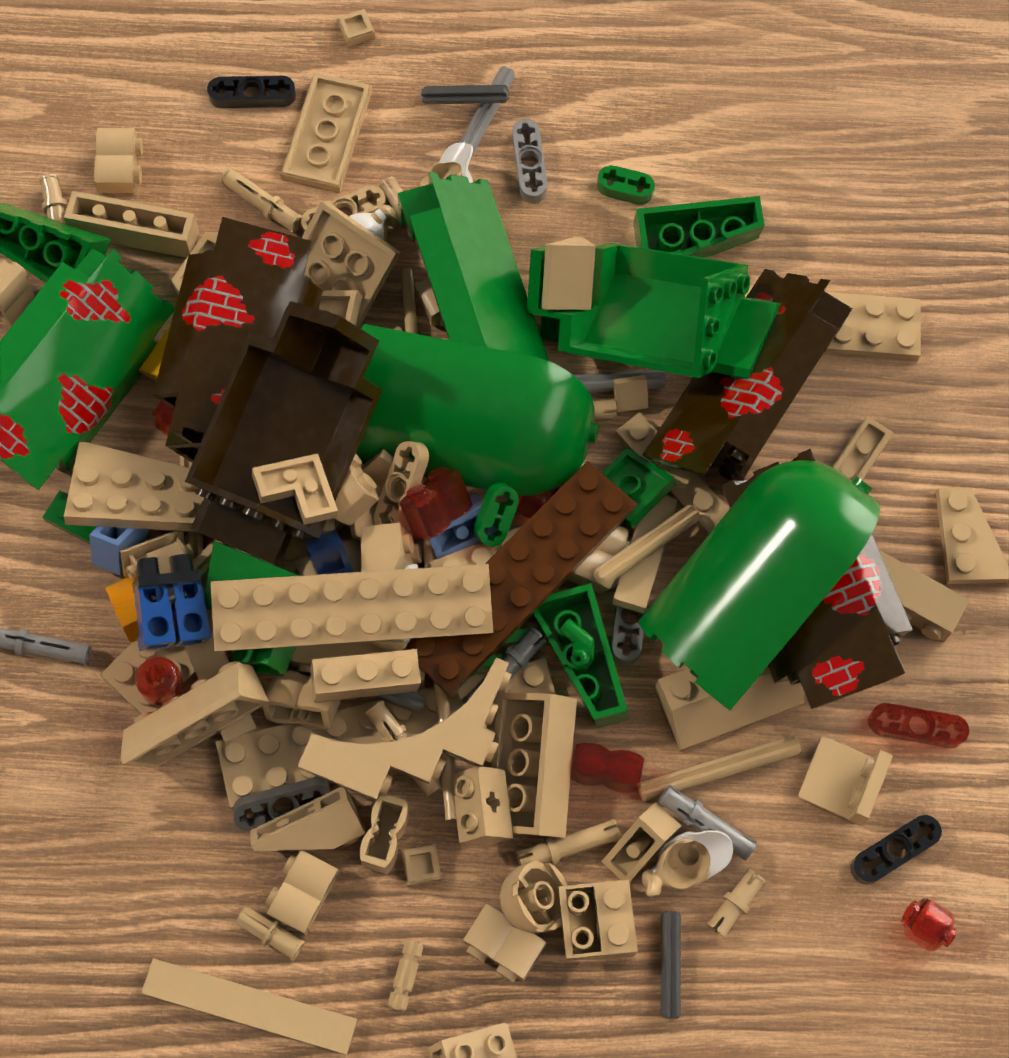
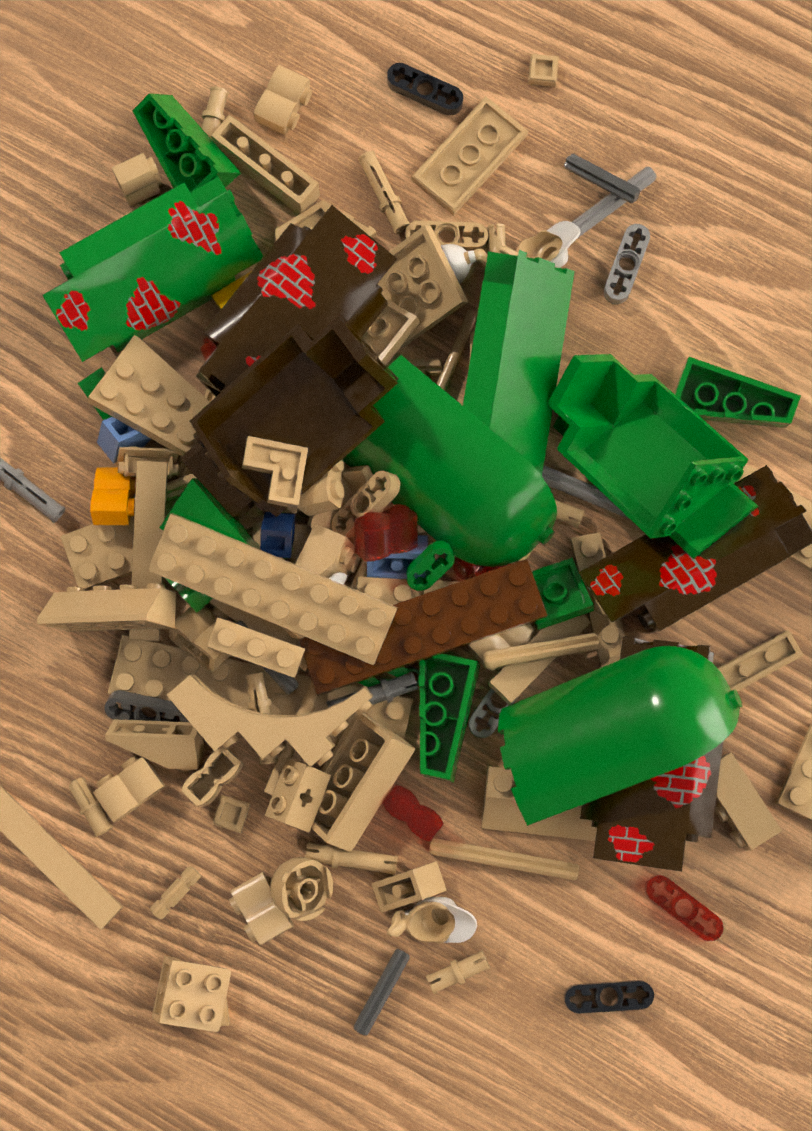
camera: 30 degrees right, 10 degrees up
(155, 671) = (95, 559): clear red head -> none
(170, 604) = (129, 503): blue hips -> none
(568, 274) = (595, 390): tan slope -> none
(582, 643) = (442, 709): green arm -> none
(598, 920) = (340, 930): tan slope -> none
(625, 184) = (701, 319): green beam -> none
(631, 393) = (600, 513): tan tile -> none
(695, 814) = (463, 888): light grey pin -> none
(844, 780) = (597, 921): tan bracket -> none
(928, 924) = (599, 1069): clear red head -> none

